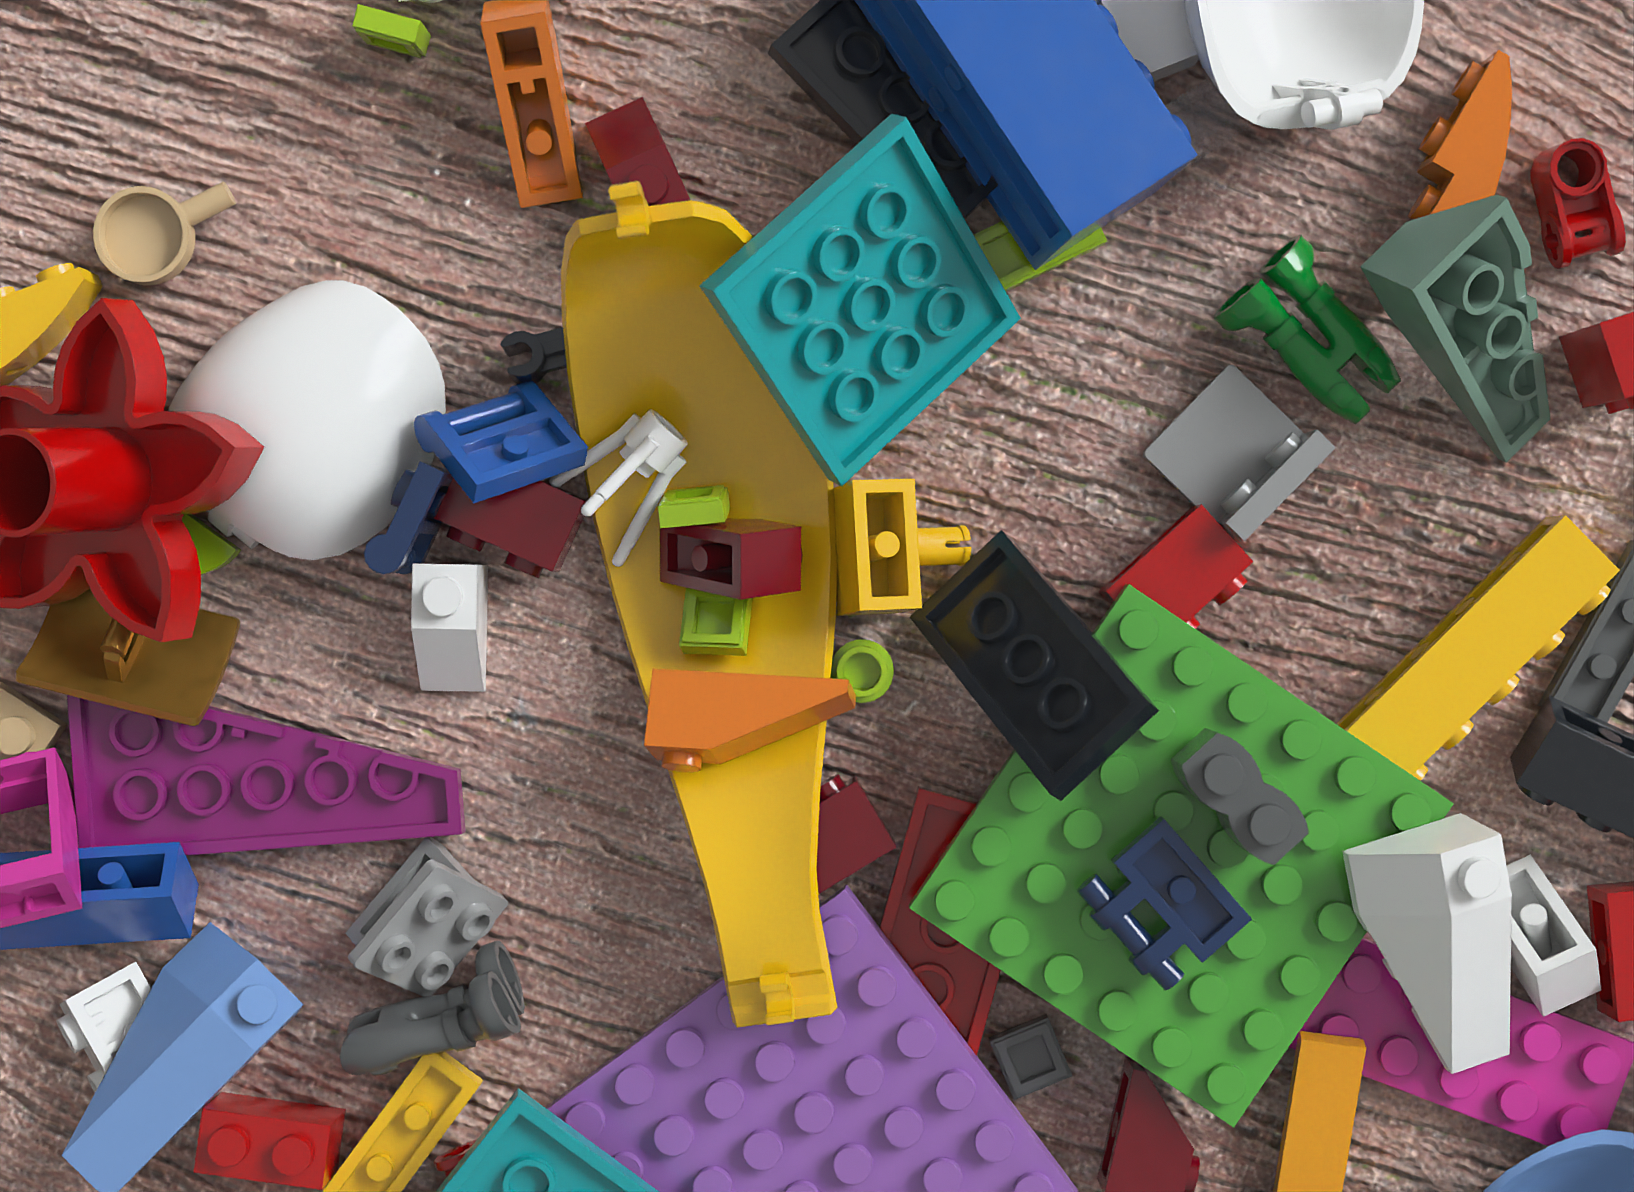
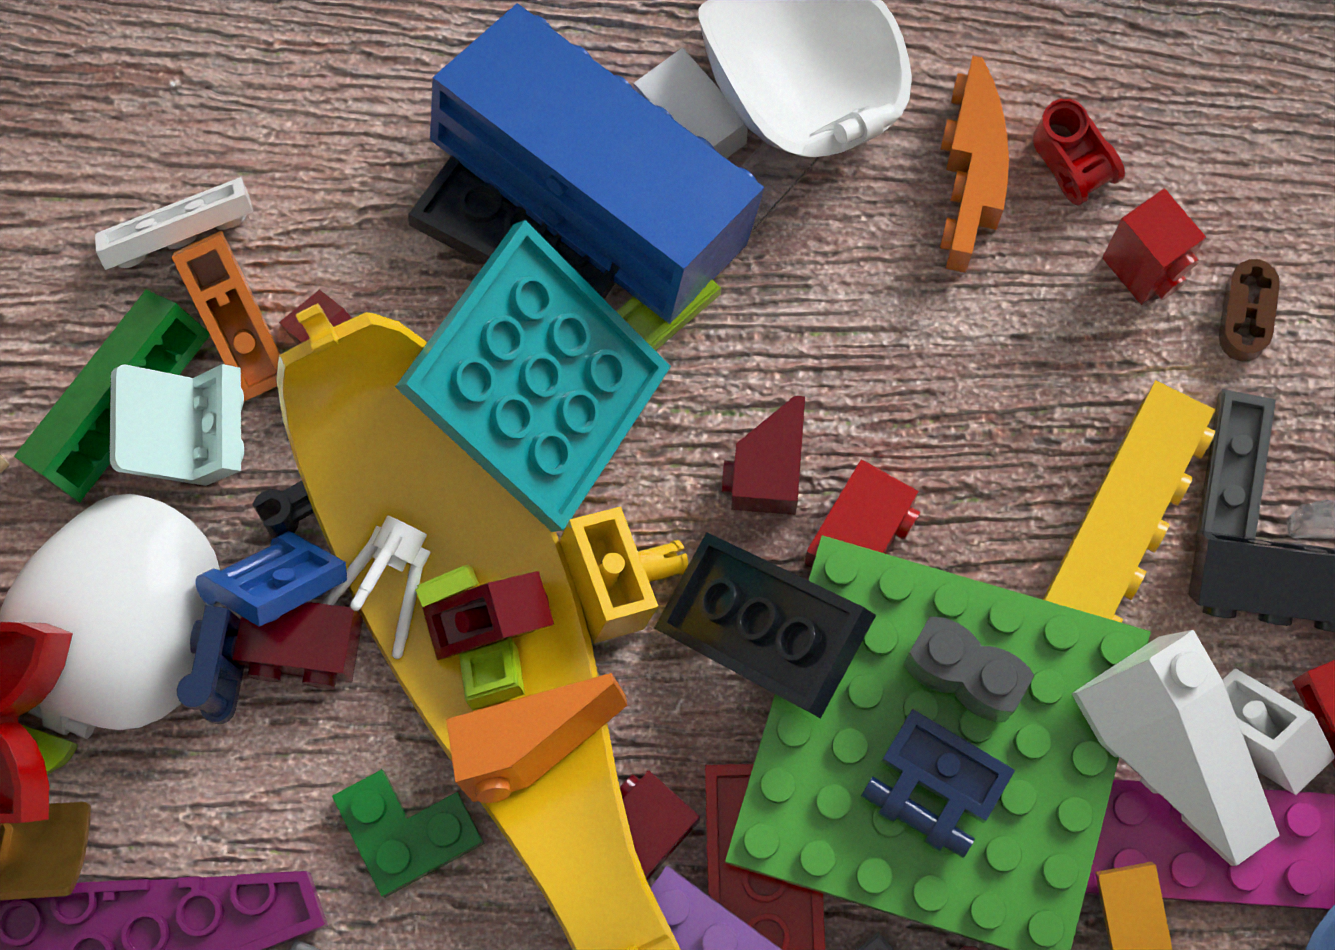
camera: 15 degrees left, 15 degrees down
(372, 155) = (74, 437): none -> green brick
(391, 31) = (104, 295): lime tile -> none
(438, 219) = (176, 424): none -> light aqua bracket
(450, 626) = (269, 749): white slope -> none
(560, 770) = (400, 847): none -> green plate
(866, 667) = (635, 680): lime plate -> none
(1097, 471) = (768, 463): none -> dark red slope
(1236, 453) = (876, 415): light grey bracket -> none
(1311, 363) = (913, 329): green piece -> none
(1465, 309) = (1012, 244): sand green wedge -> none

